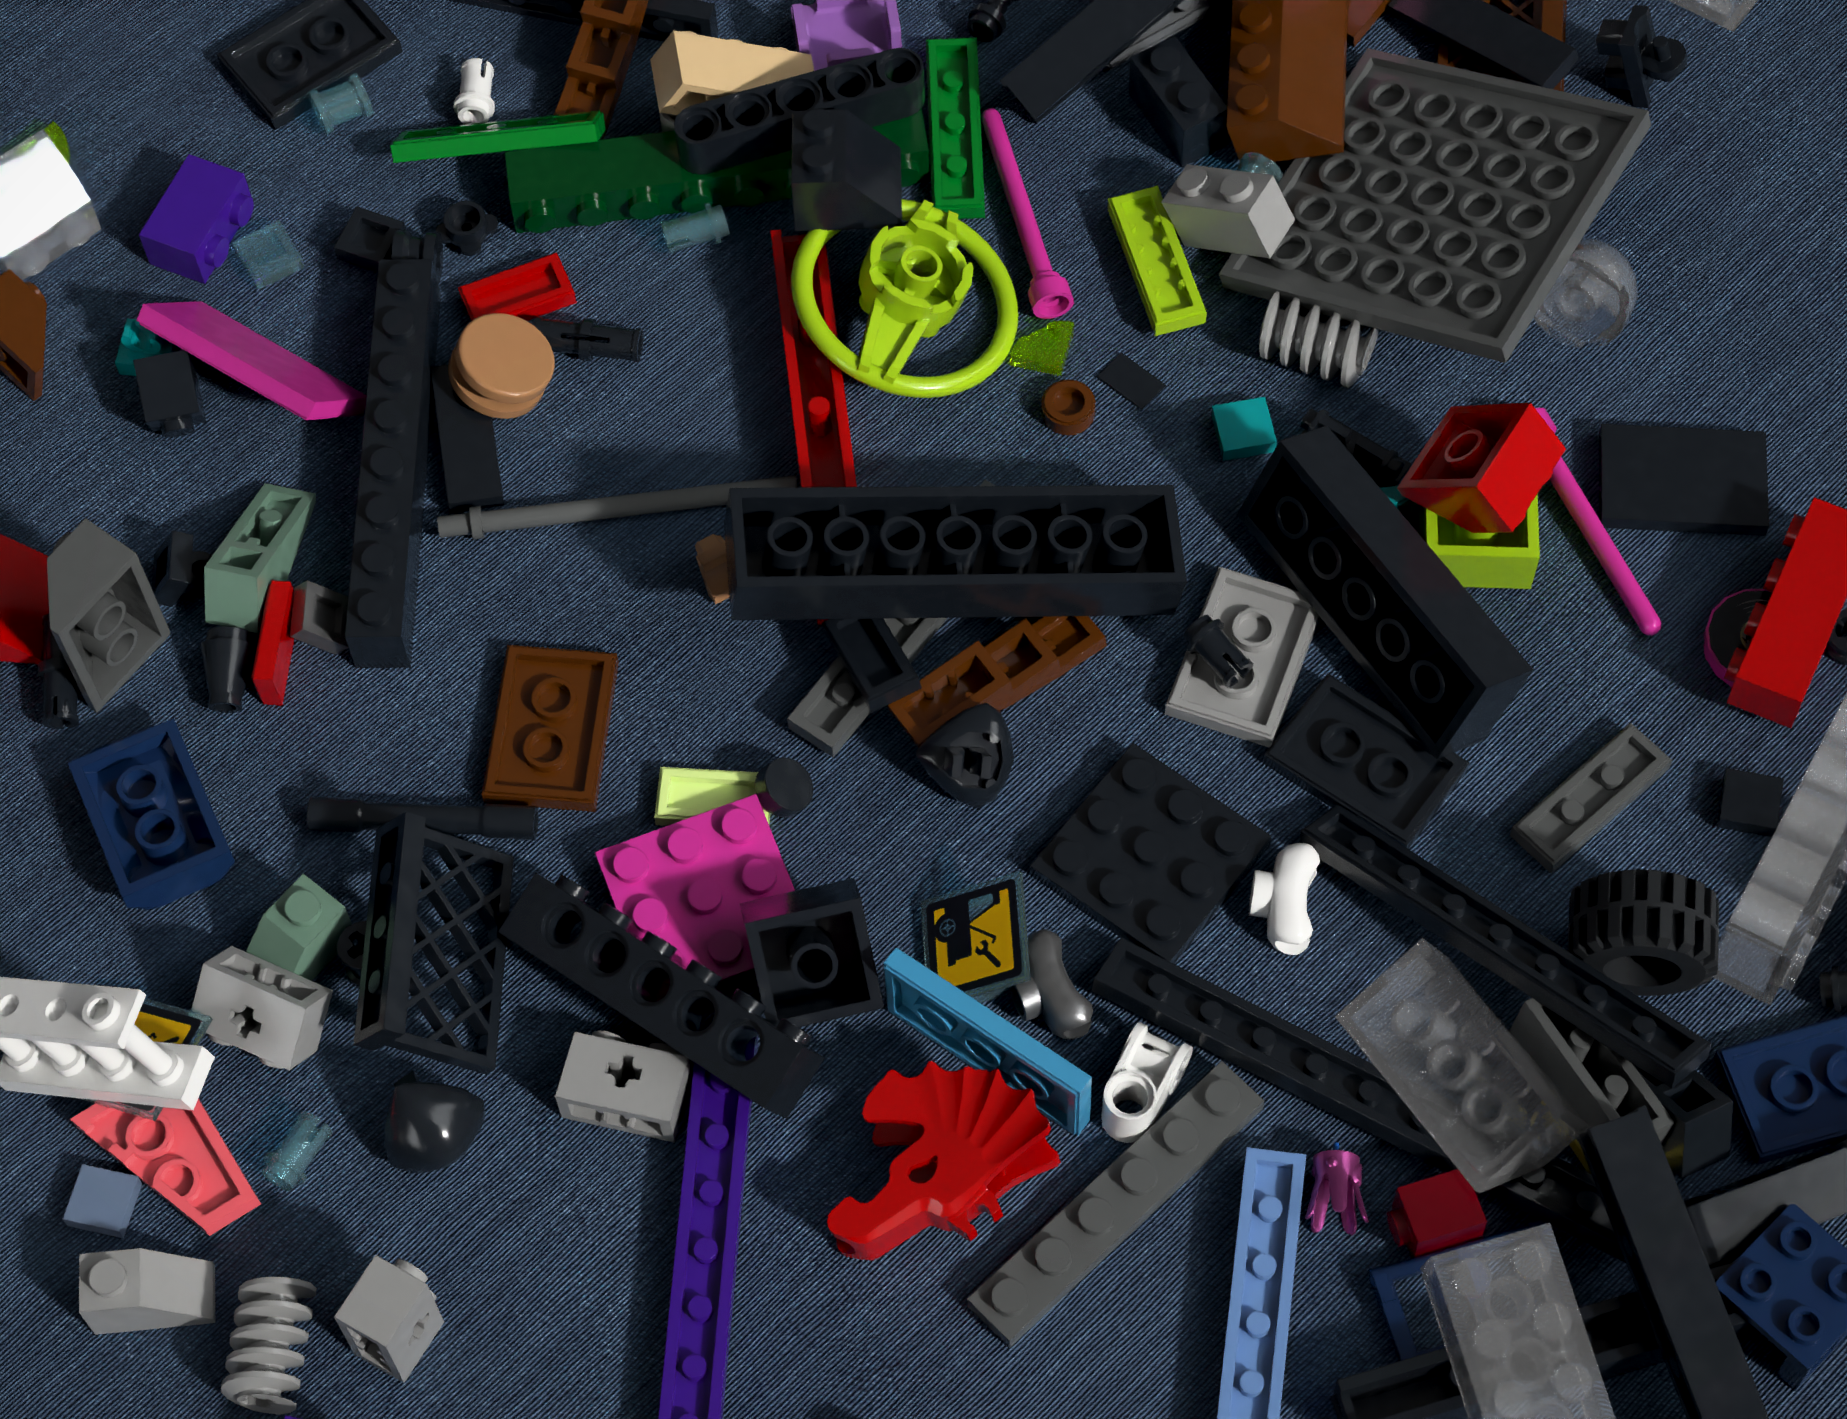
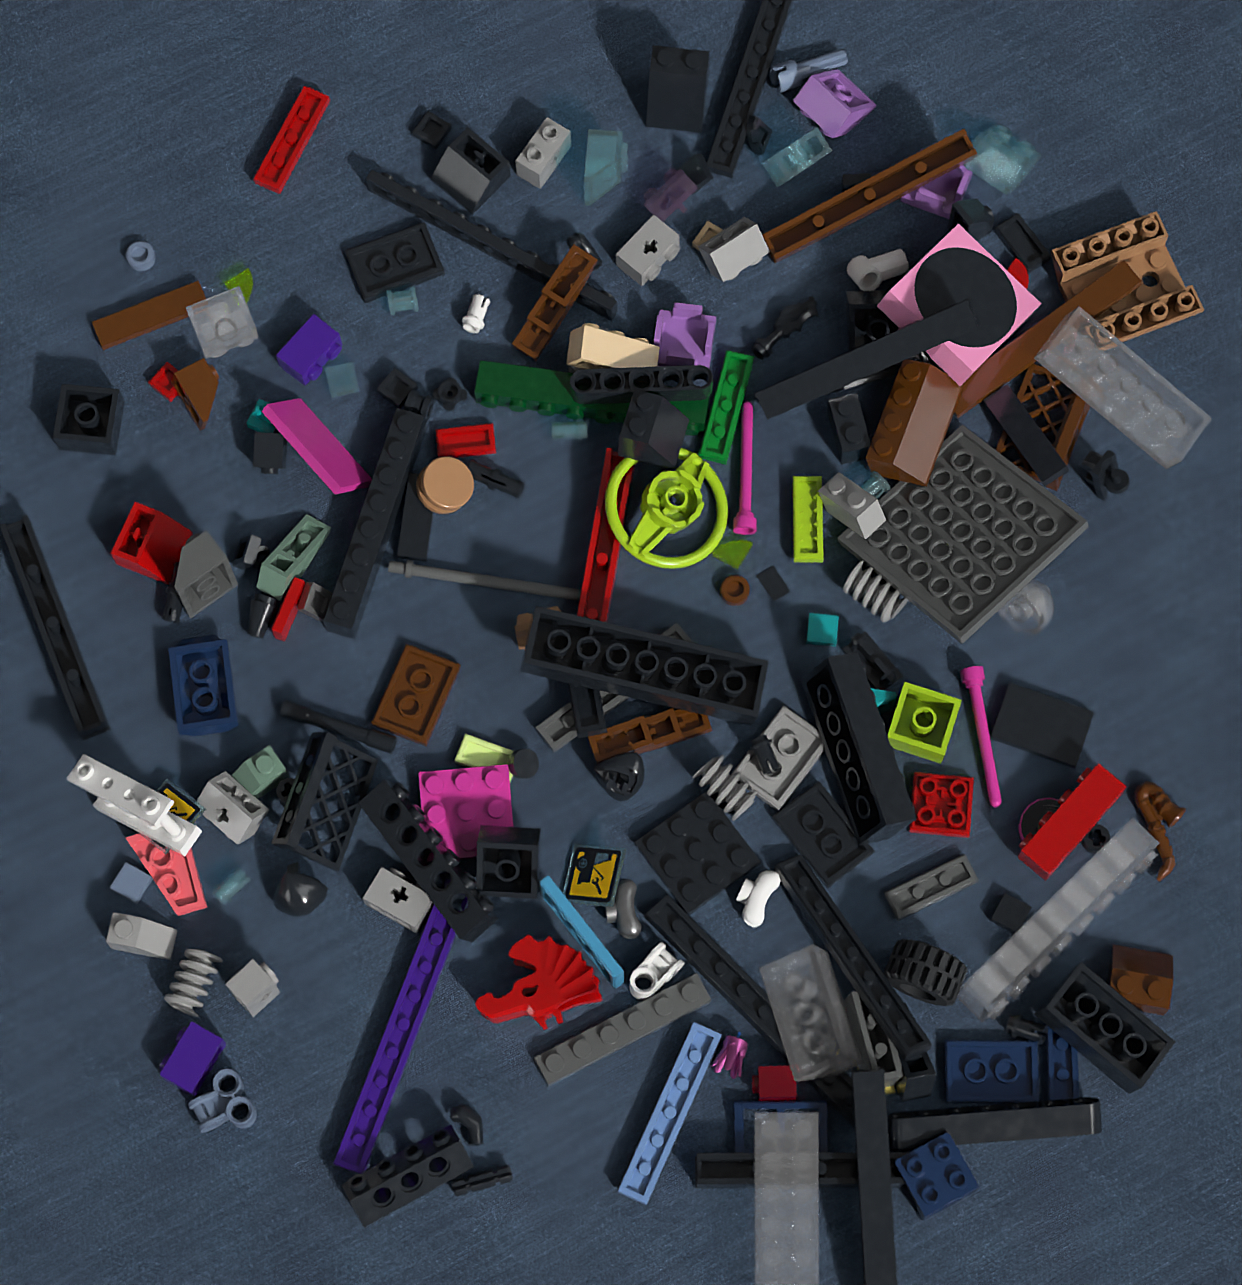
camera: 15 degrees right, 10 degrees up
(498, 136) = (480, 347): green tile -> none
(1166, 722) = (726, 786): none -> light grey piece
(1484, 466) = (930, 699): red slope -> none
(1569, 655) = (942, 804): none -> red tile

